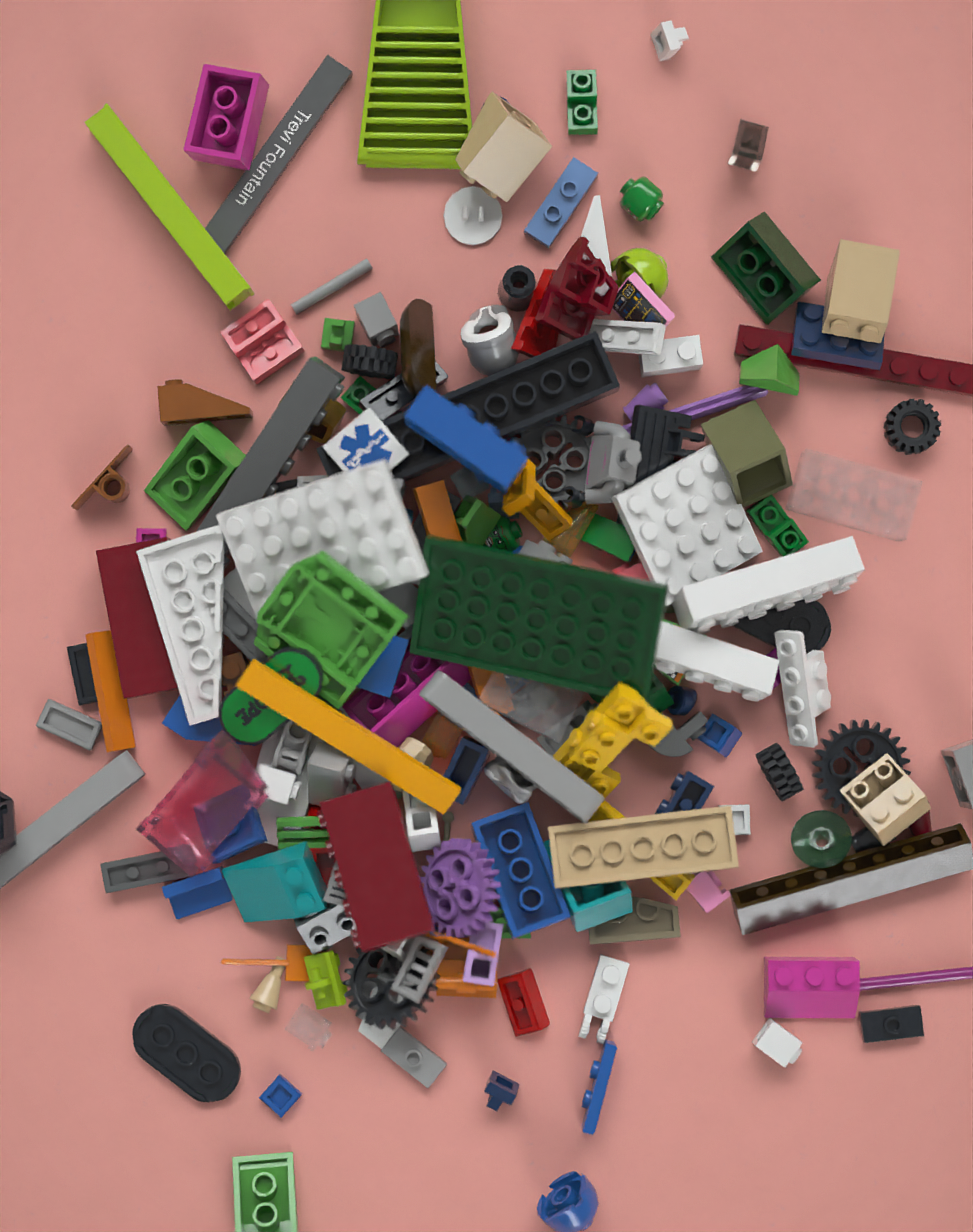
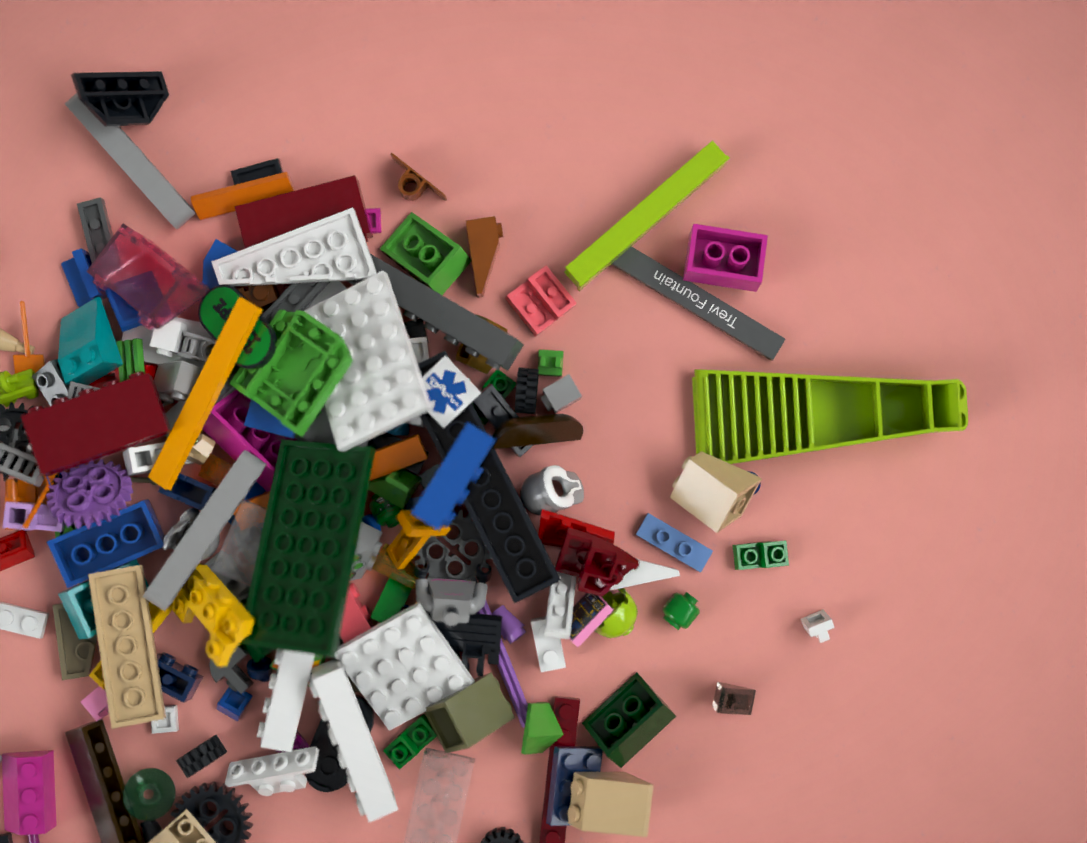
camera: 90 degrees right, 0 degrees up
(69, 724) = (215, 165): light grey tile -> none
(331, 286) = (590, 355): light grey bar -> none
(472, 216) = (657, 468): white piece -> none
(515, 298) = (591, 503): black plant -> none

